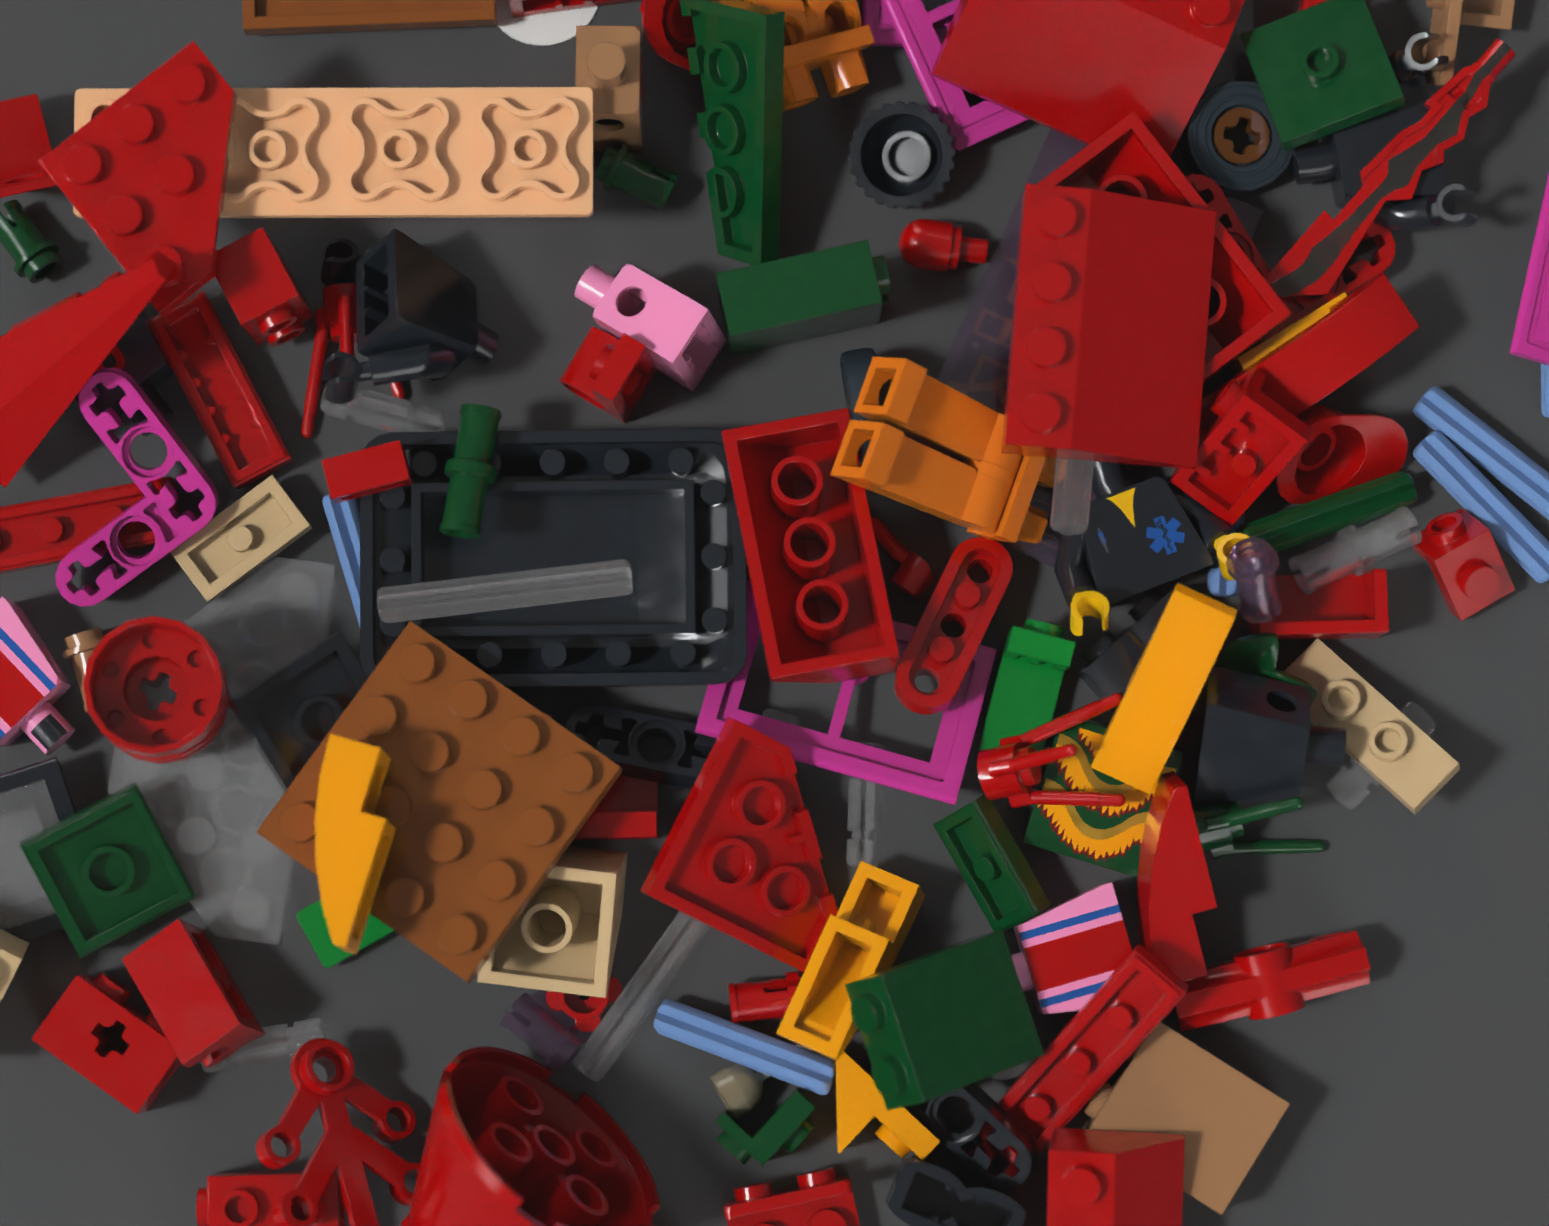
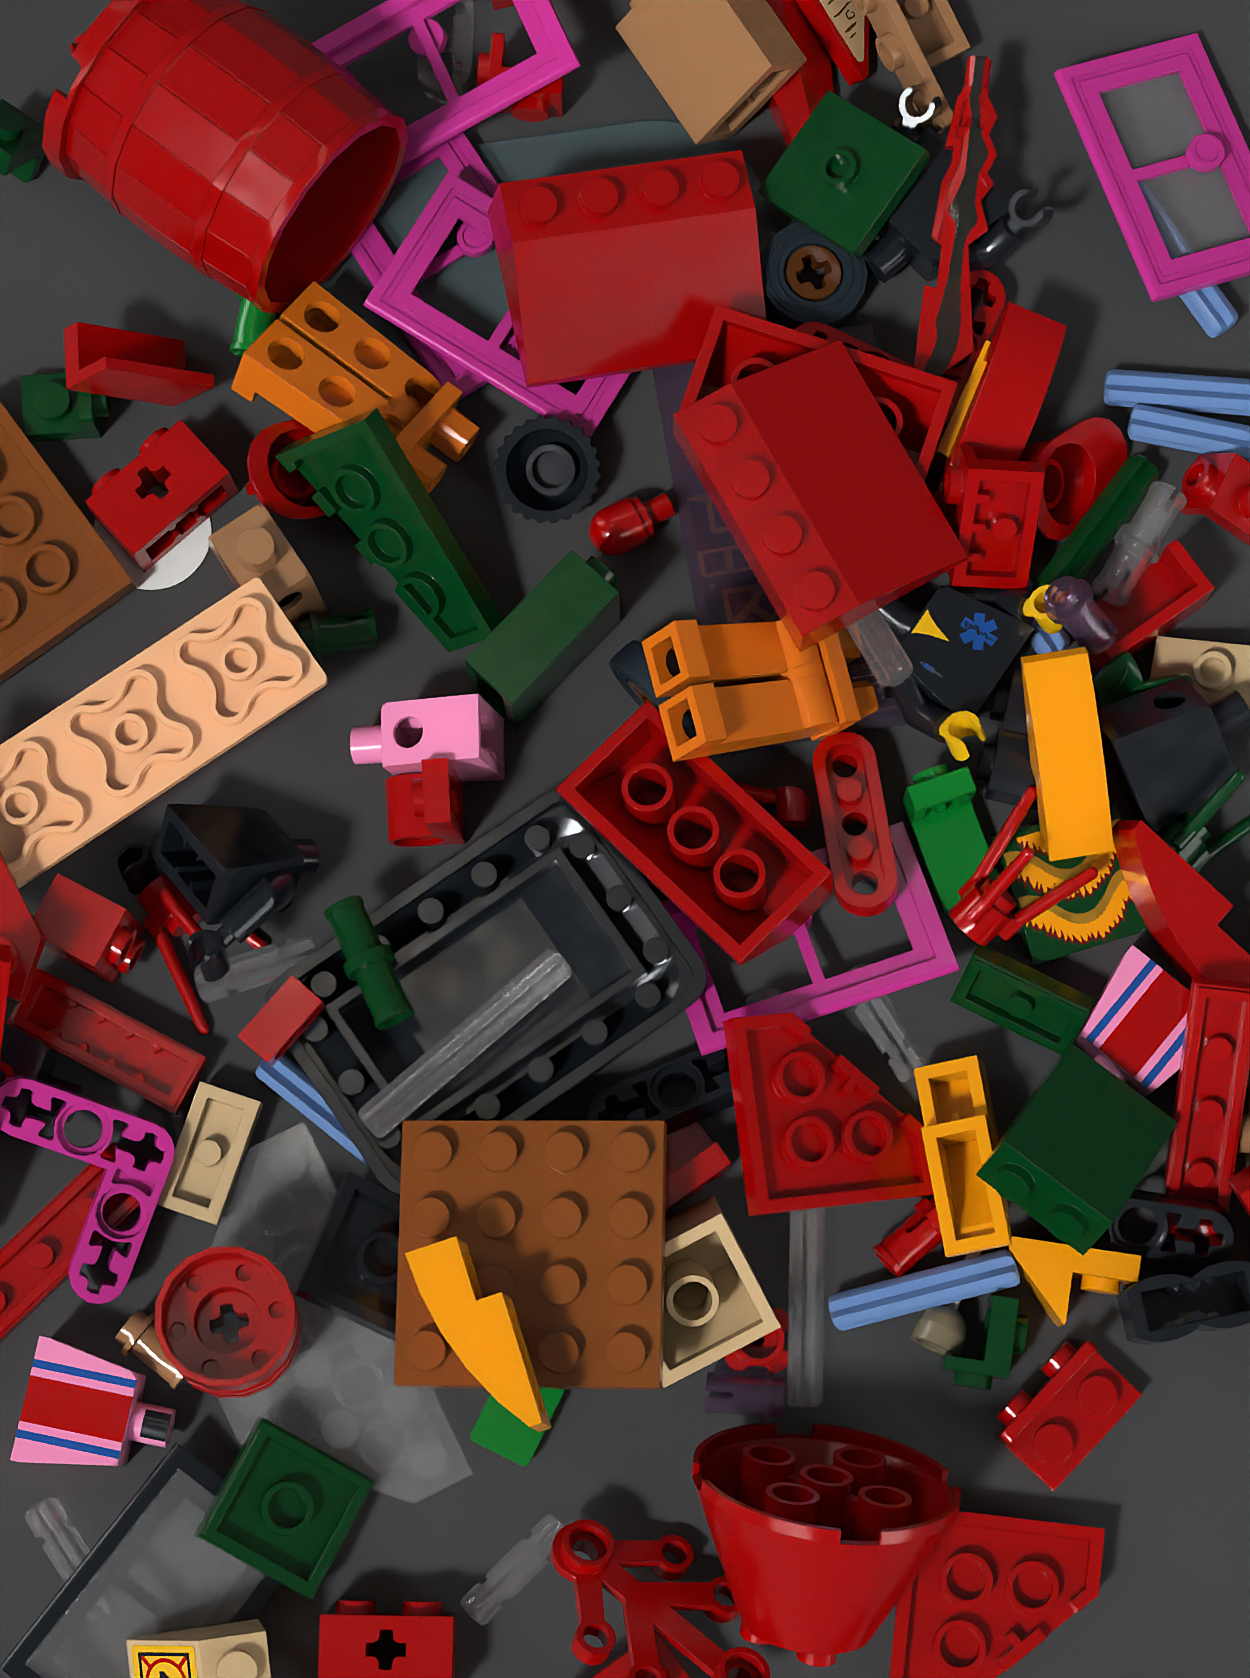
camera: 30 degrees left, 5 degrees down
(192, 995) = (429, 1565): red hinge -> none

